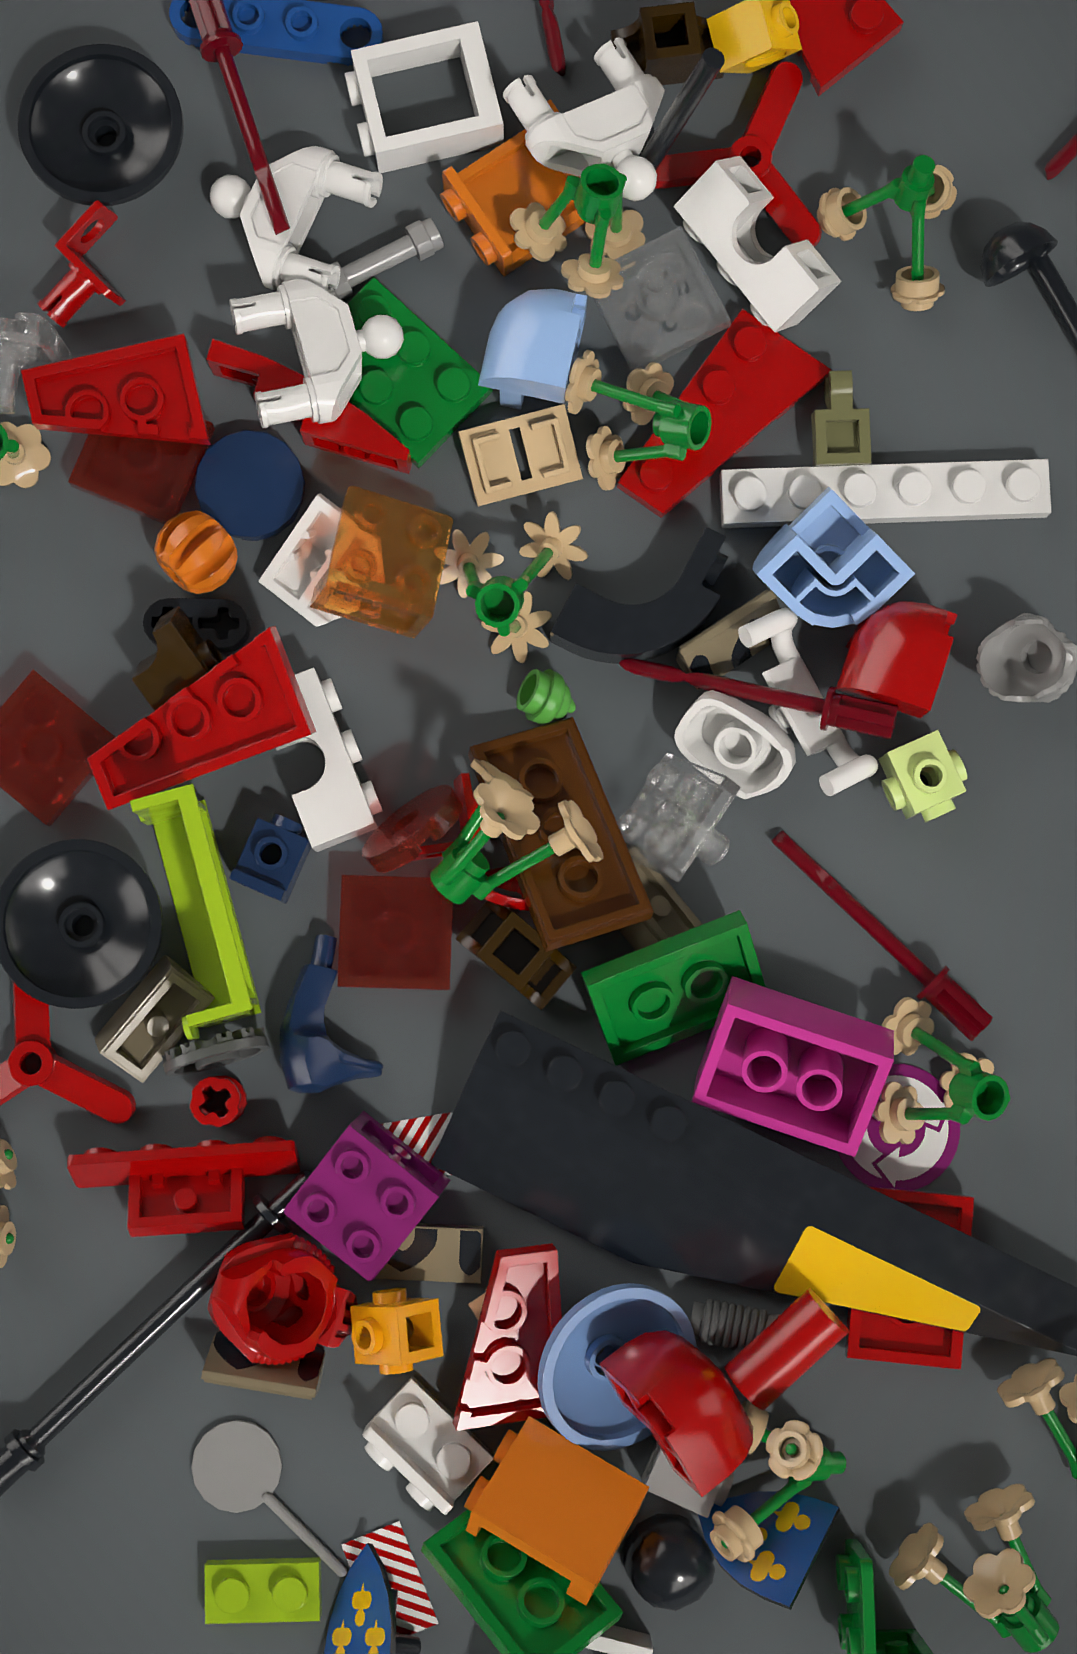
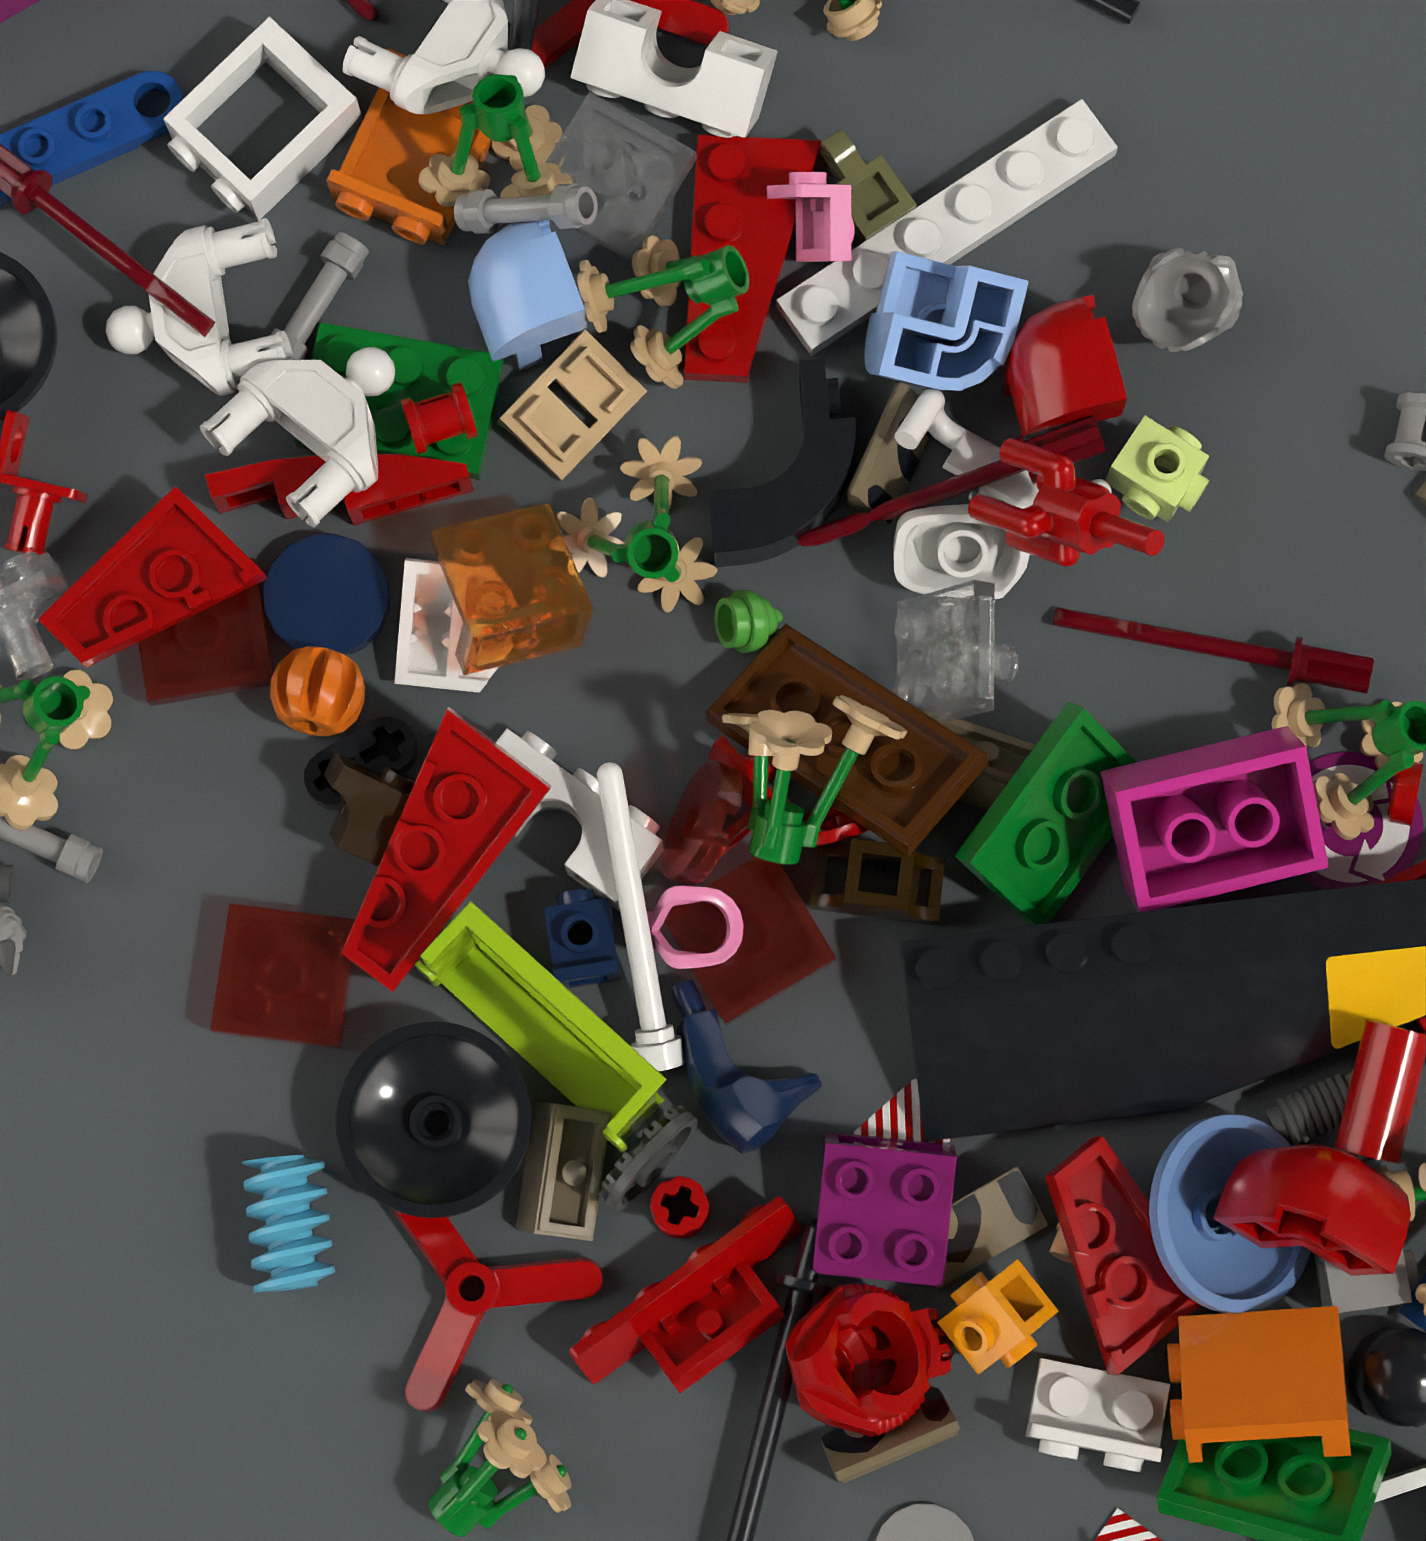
camera: 25 degrees left, 5 degrees down
(278, 969) = (655, 1038): none -> white piece
(322, 887) = (690, 894): none -> bright pink piece
(410, 403) = (439, 418): none -> red bush
(600, 300) = (567, 206): none -> light grey bar
(795, 427) = (822, 216): none -> bright pink bracket
(827, 771) = (1066, 513): none -> red plant
(947, 1137) = (1404, 795): none -> red tile

